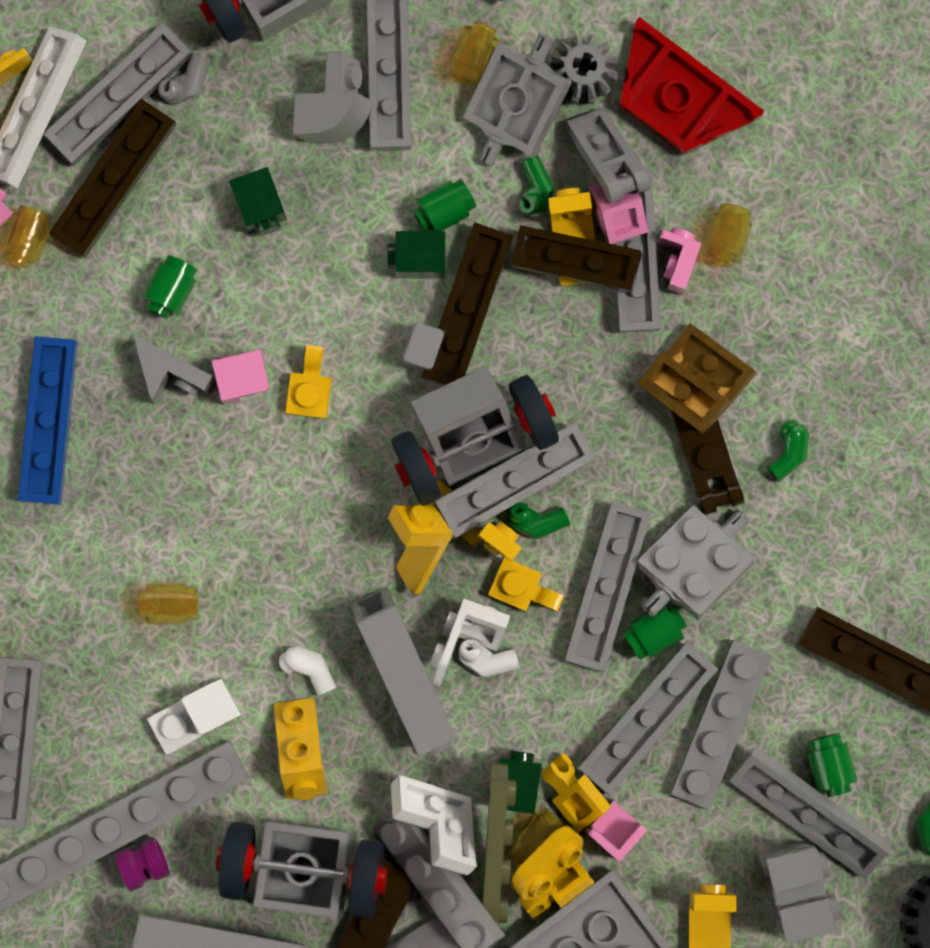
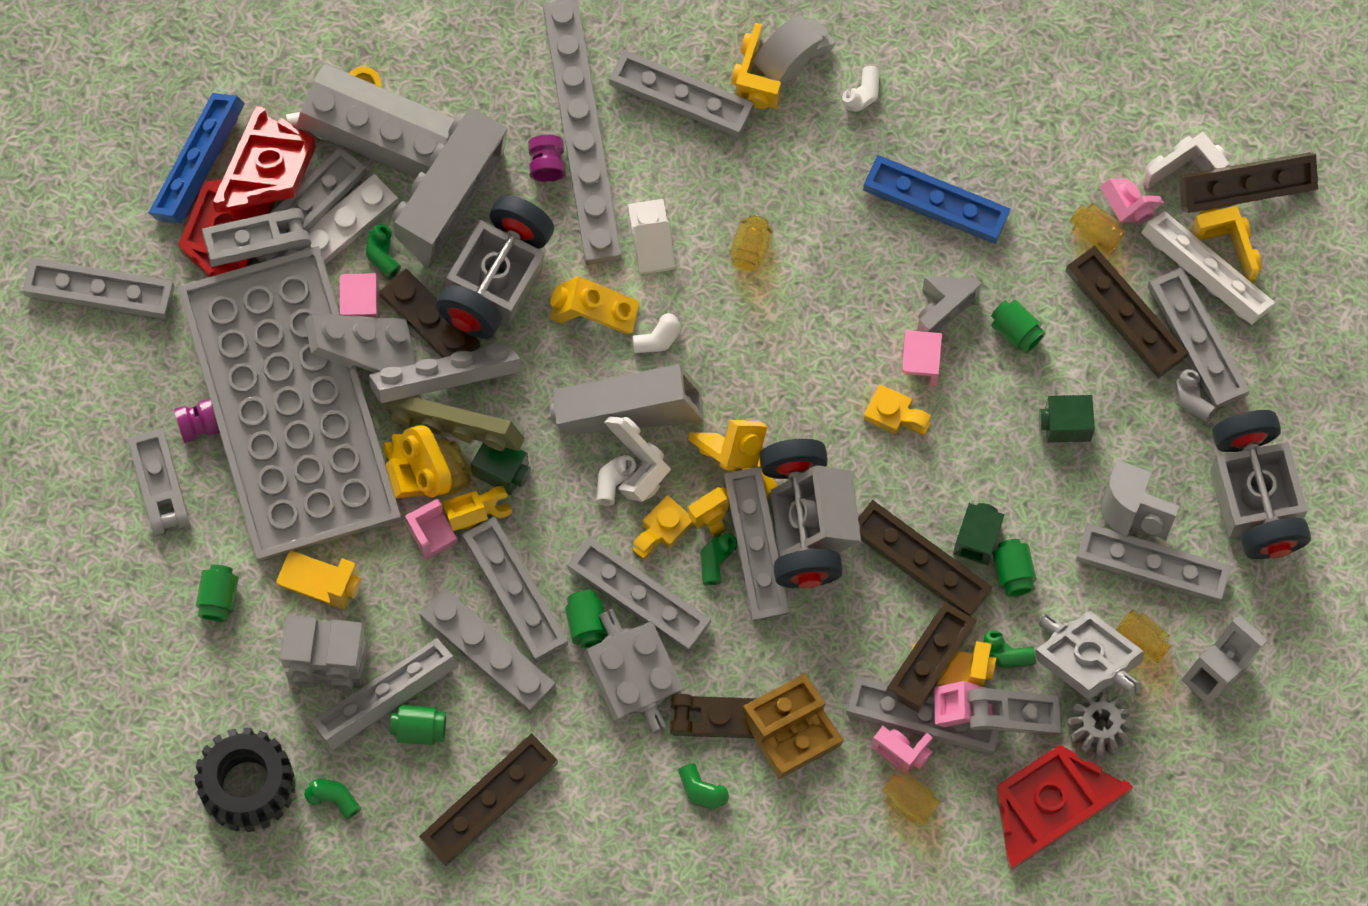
camera: 115 degrees right, 15 degrees down
(422, 346) = (898, 505): light grey slope -> none
(446, 817) = (496, 394): white plate -> none

